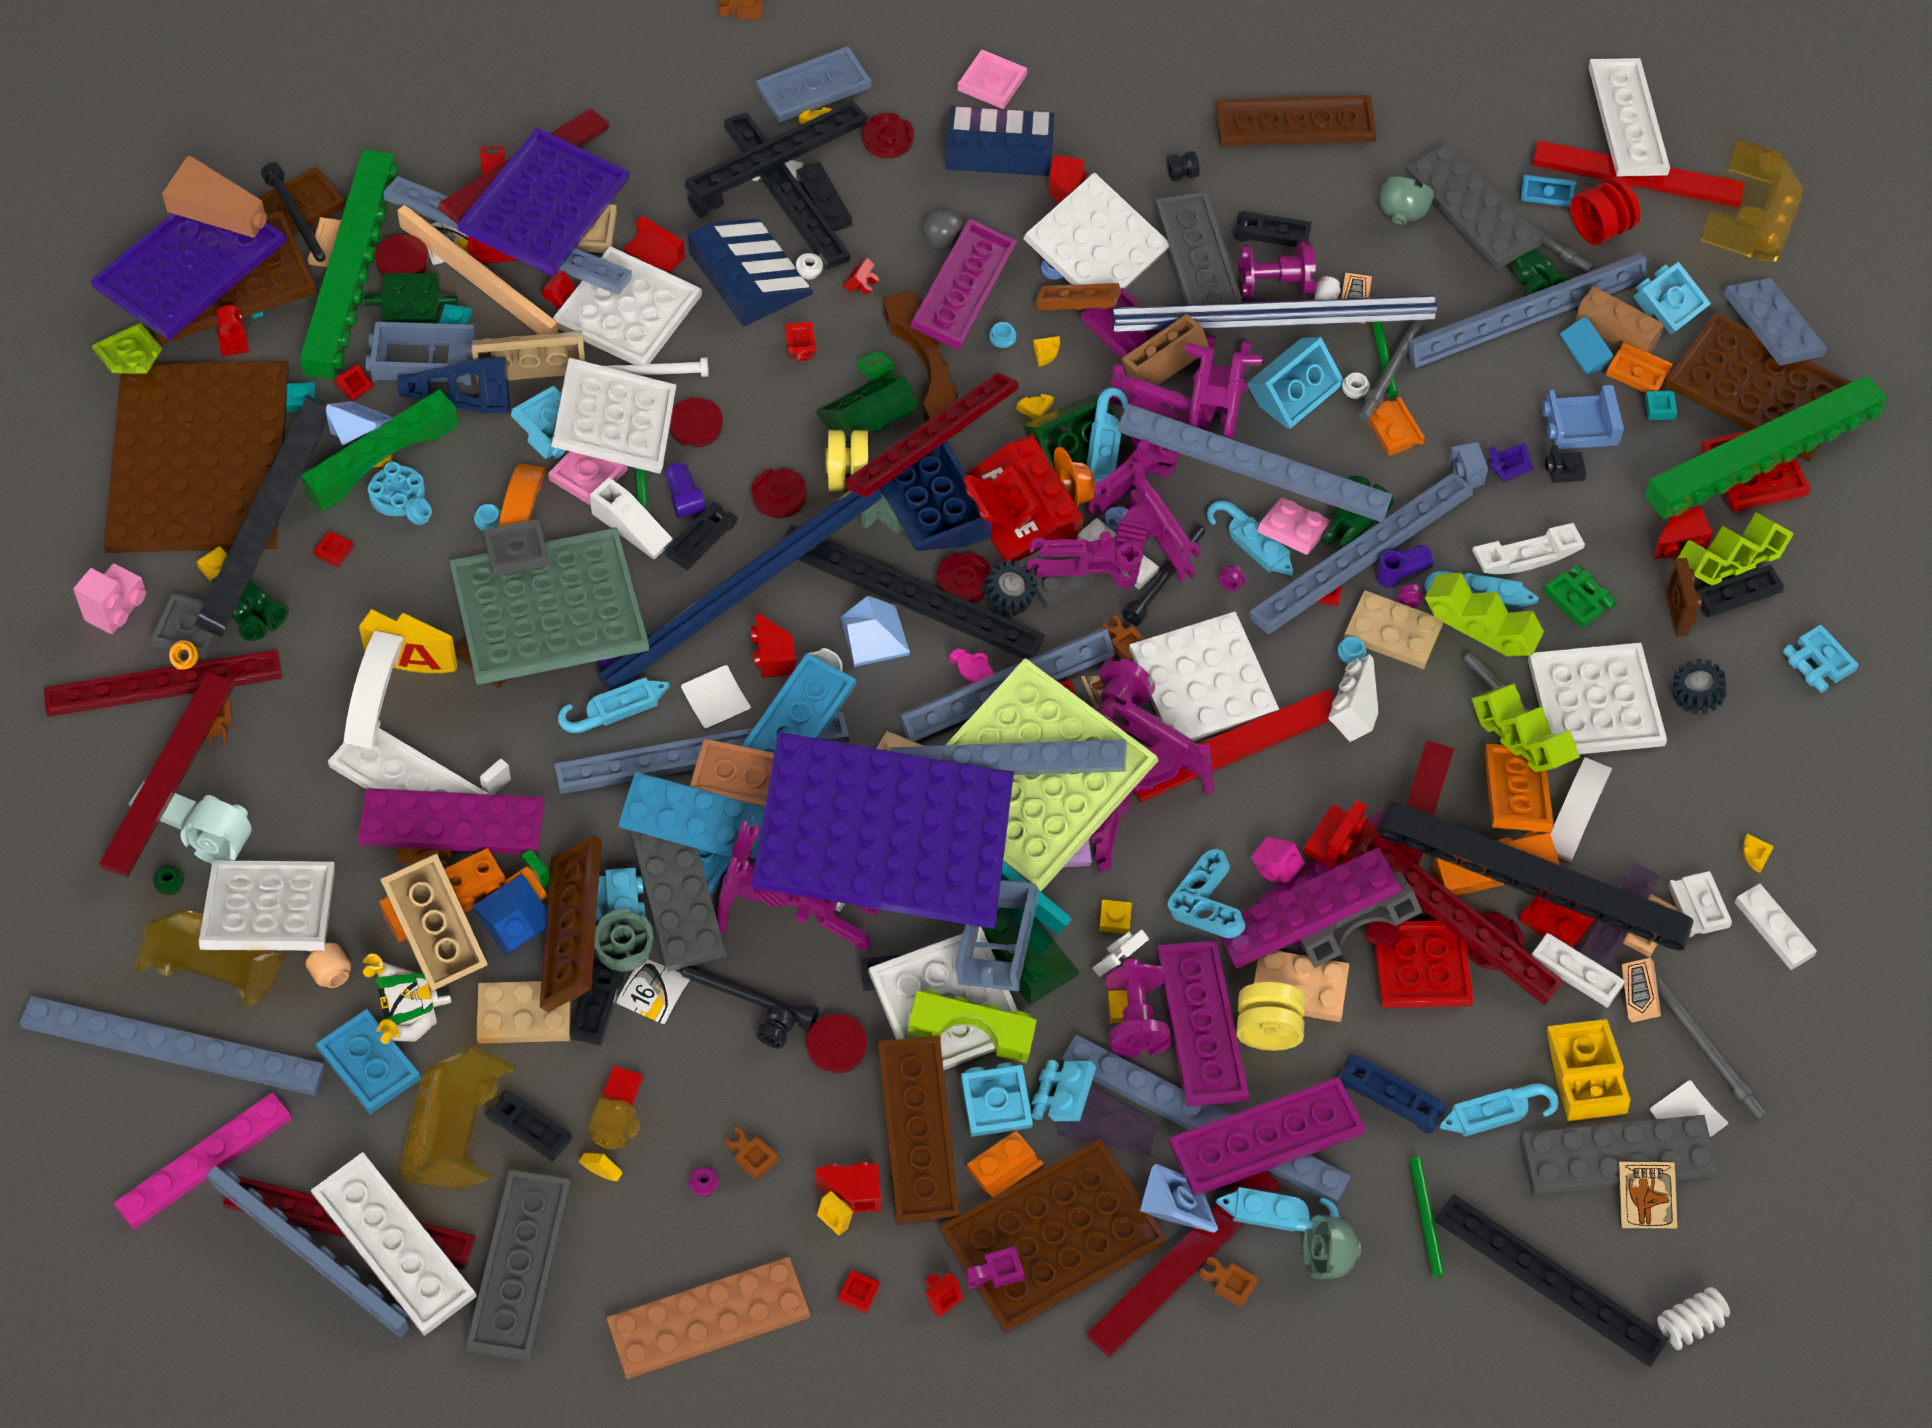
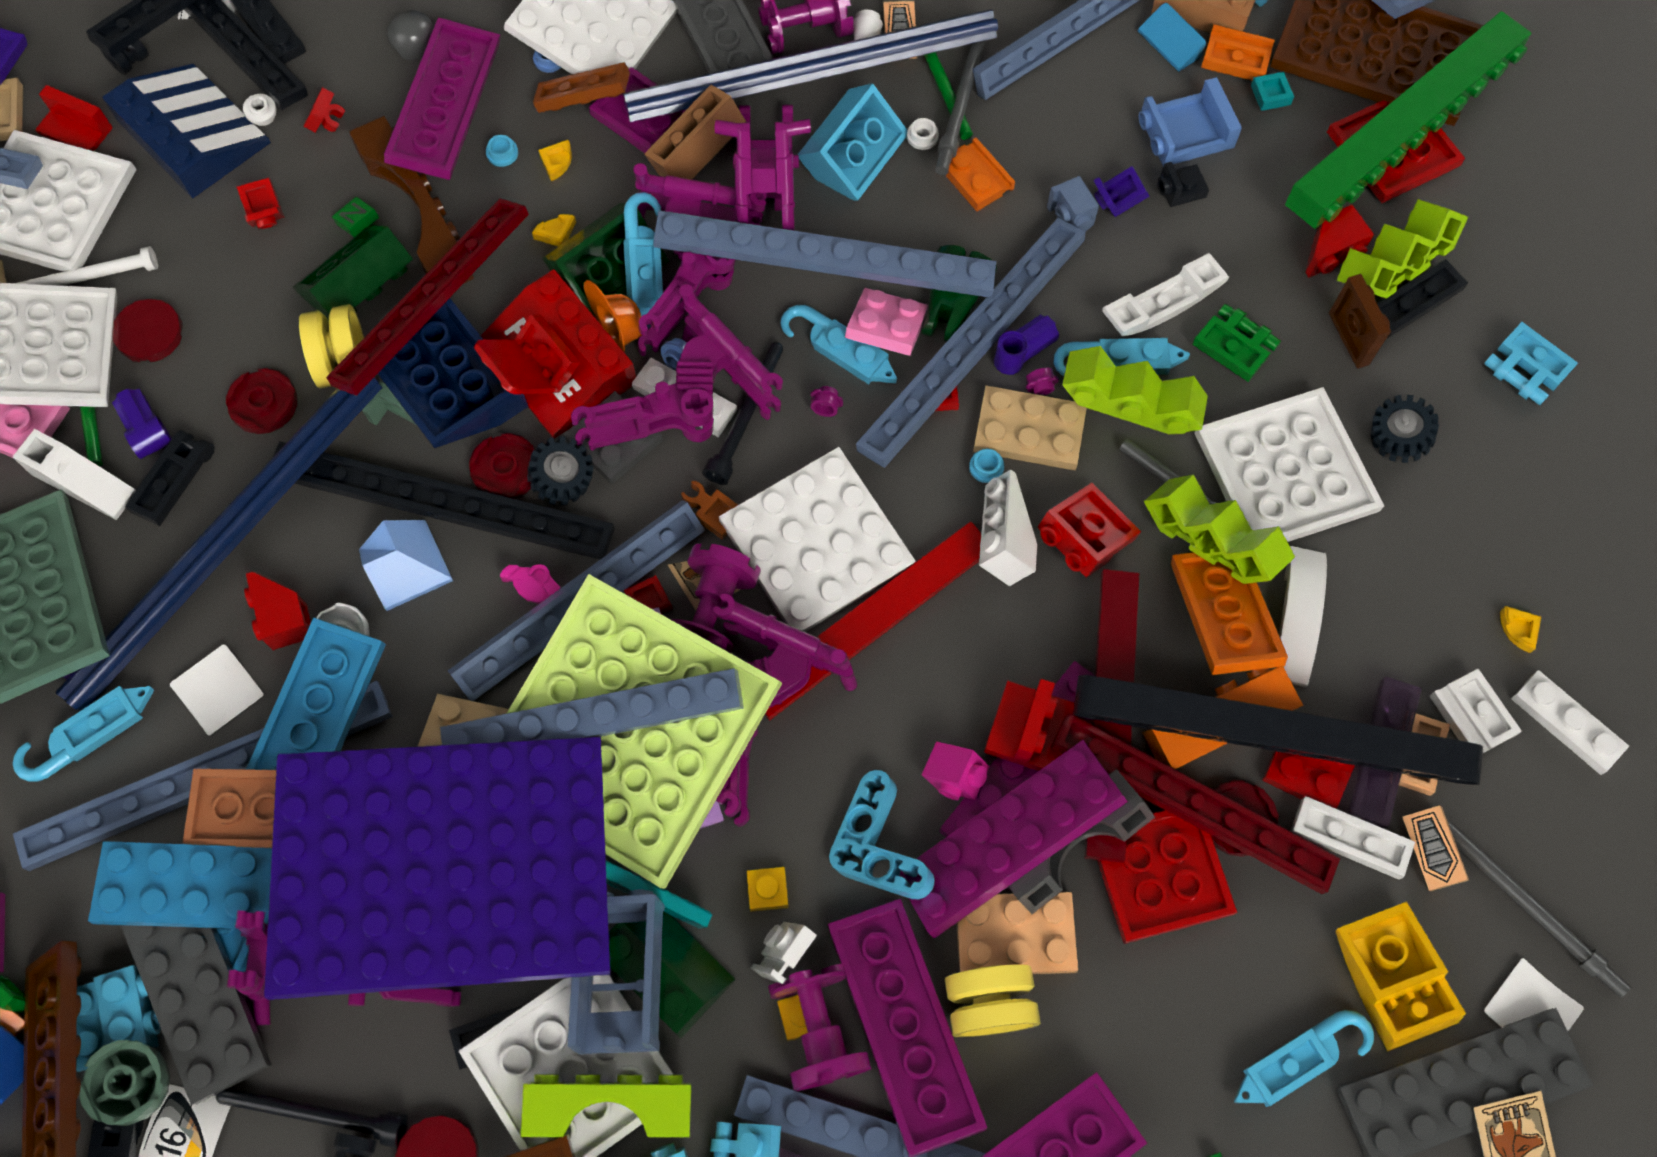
camera: 10 degrees left, 10 degrees up
(1391, 1092) = (1162, 1066): dark blue plate -> none
(1421, 711) = (1087, 530): none -> red plate

